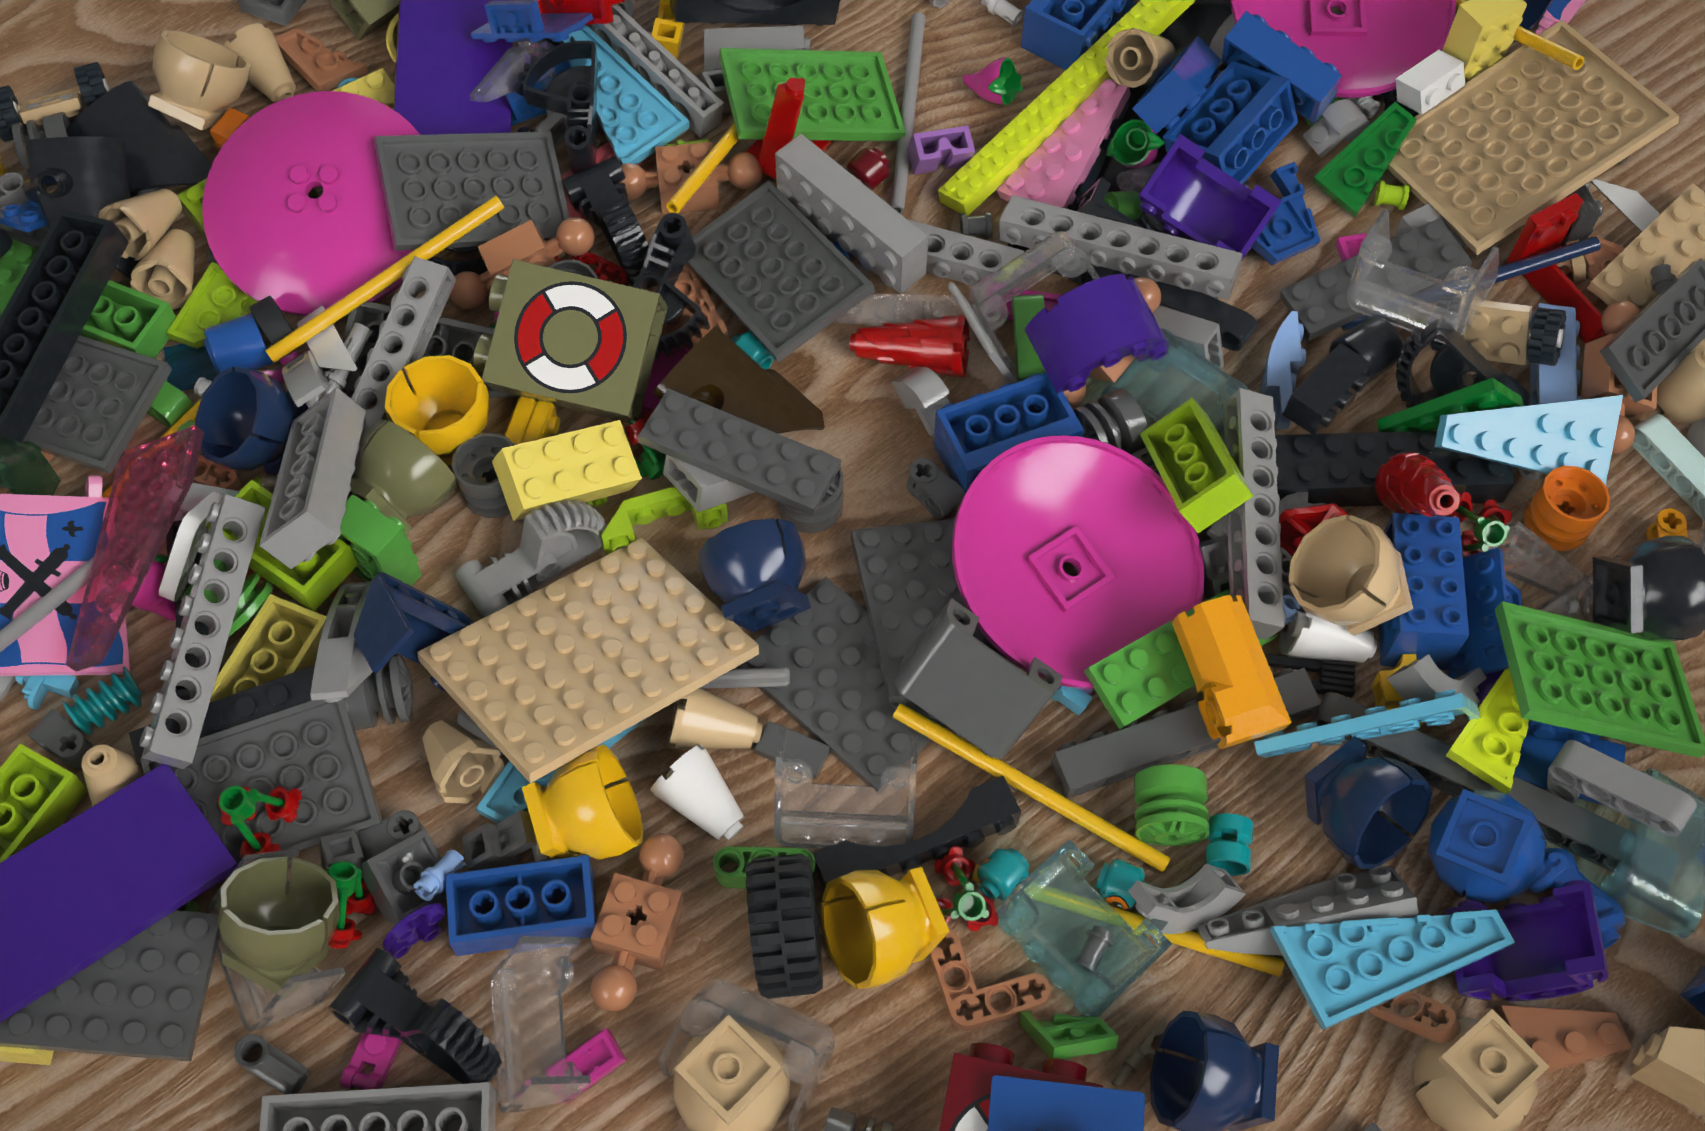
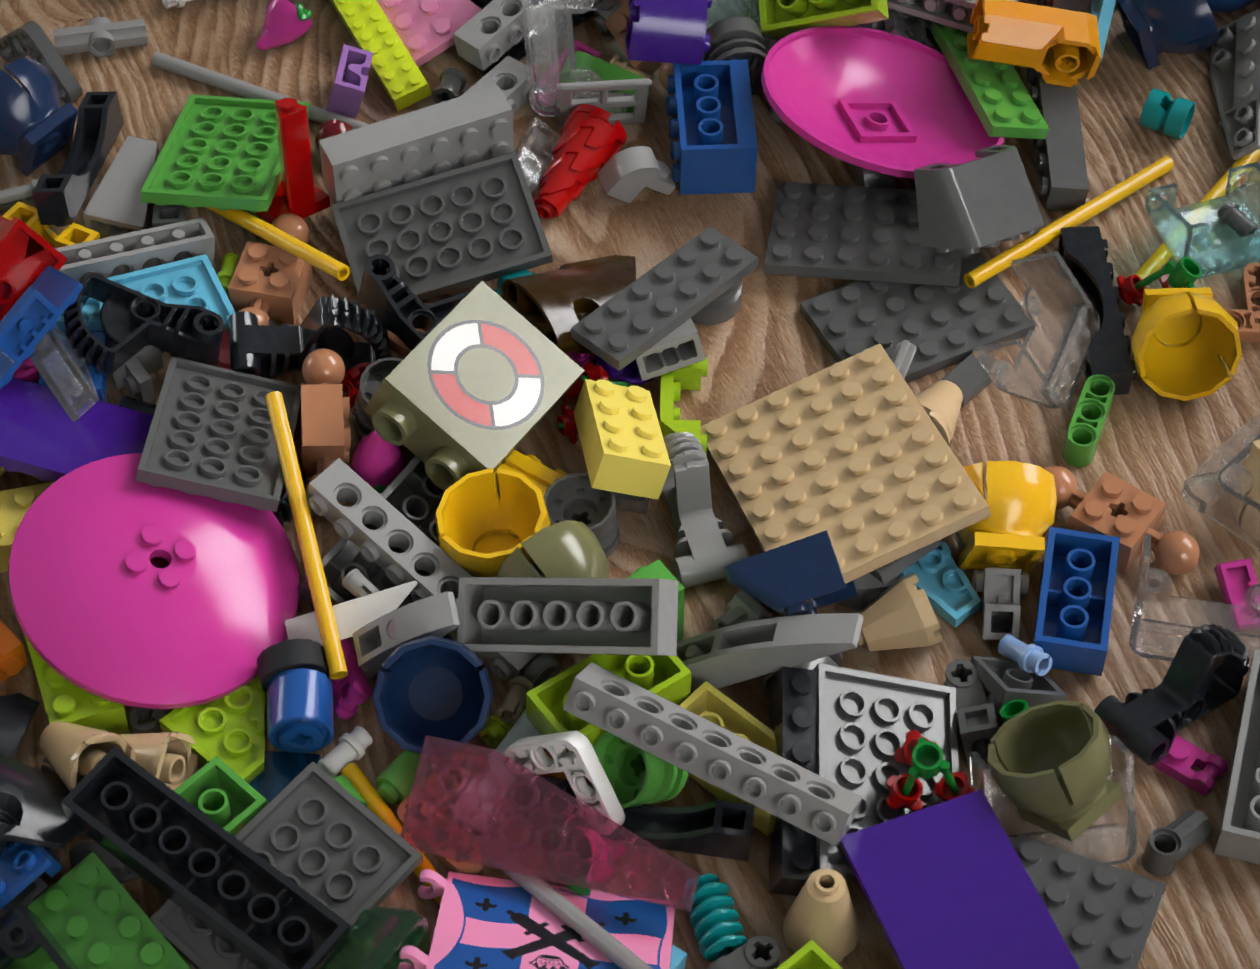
camera: 70 degrees left, 10 degrees down
(412, 928) = (1075, 680): dark purple dish -> none
(700, 794) = (1000, 438): white cone -> none
(756, 572) = (799, 328): dark blue plate -> none
(784, 926) = (1172, 393): black tyre -> none
(933, 490) = (739, 198): dark grey piece -> none
(1002, 873) = (1153, 251): teal head -> none
(1117, 880) = (1189, 187): teal head -> none
(1171, 805) = (1126, 131): bright green wheel -> none
(1185, 906) = (1211, 148): light grey arch -> none

